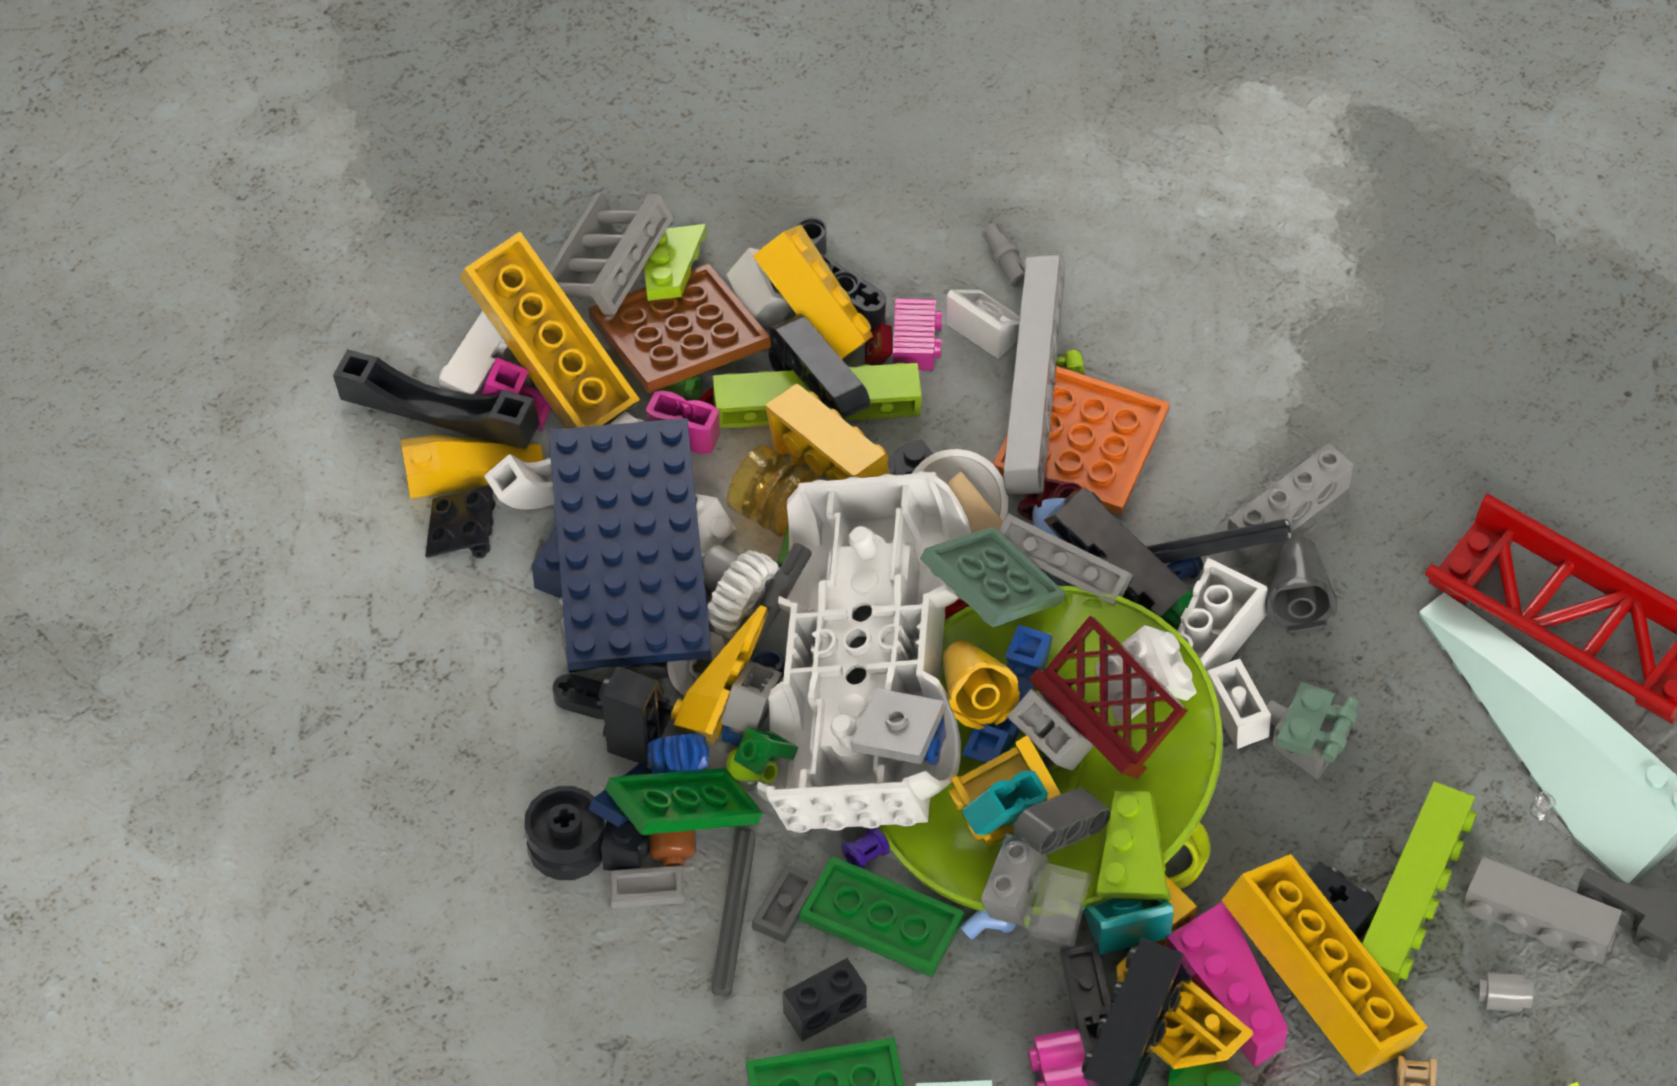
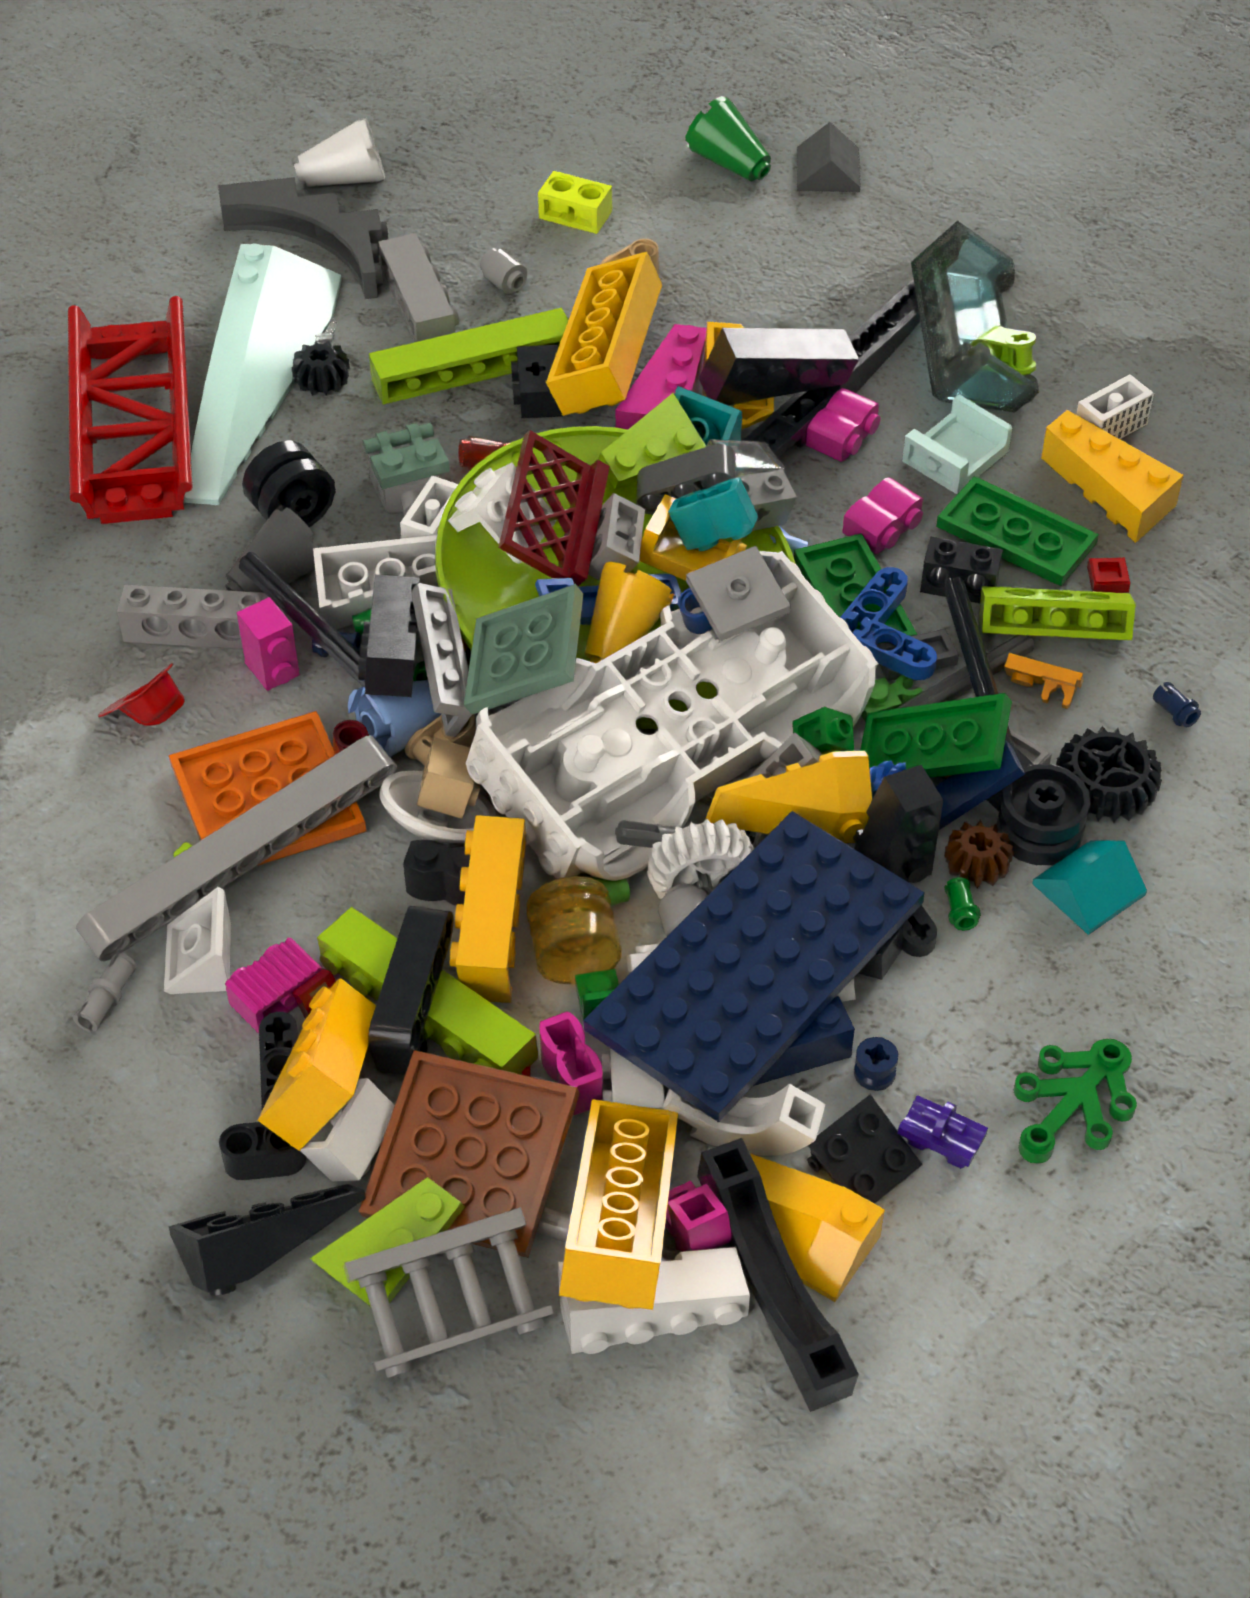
camera: 135 degrees left, 5 degrees down
(368, 667) = (1076, 1093): none -> green plant
(424, 564) = (942, 1131): none -> dark purple hips
(492, 822) = (1093, 883): none -> teal slope
(505, 590) = (882, 1072): none -> dark blue wheel
(529, 918) = (1115, 770): none -> black gear
(555, 729) = (963, 912): none -> green pin
(560, 1022) = (1184, 711): none -> dark blue pin
(583, 769) = (978, 853): none -> reddish brown gear
(666, 1042) = (1057, 613): none -> lime brick
(677, 959) = (1030, 671): none -> light orange plate
(715, 483) = (594, 988): none -> green bracket
(726, 915) = (970, 640): none -> black axle
(750, 206) = (236, 1248): none -> black wedge
(773, 852) = (890, 696): none -> bright green plate
(825, 876) = (875, 631): none -> blue beam
(937, 1006) = (884, 515): none -> dark pink brick
(1204, 506) = (268, 643): none -> dark pink brick
(1240, 422) = (151, 702): none -> red piece
(1291, 805) = (475, 449): none -> clear red cone
(1361, 631) = (289, 478): none -> black wheel
(1504, 772) = (320, 368): none -> black gear

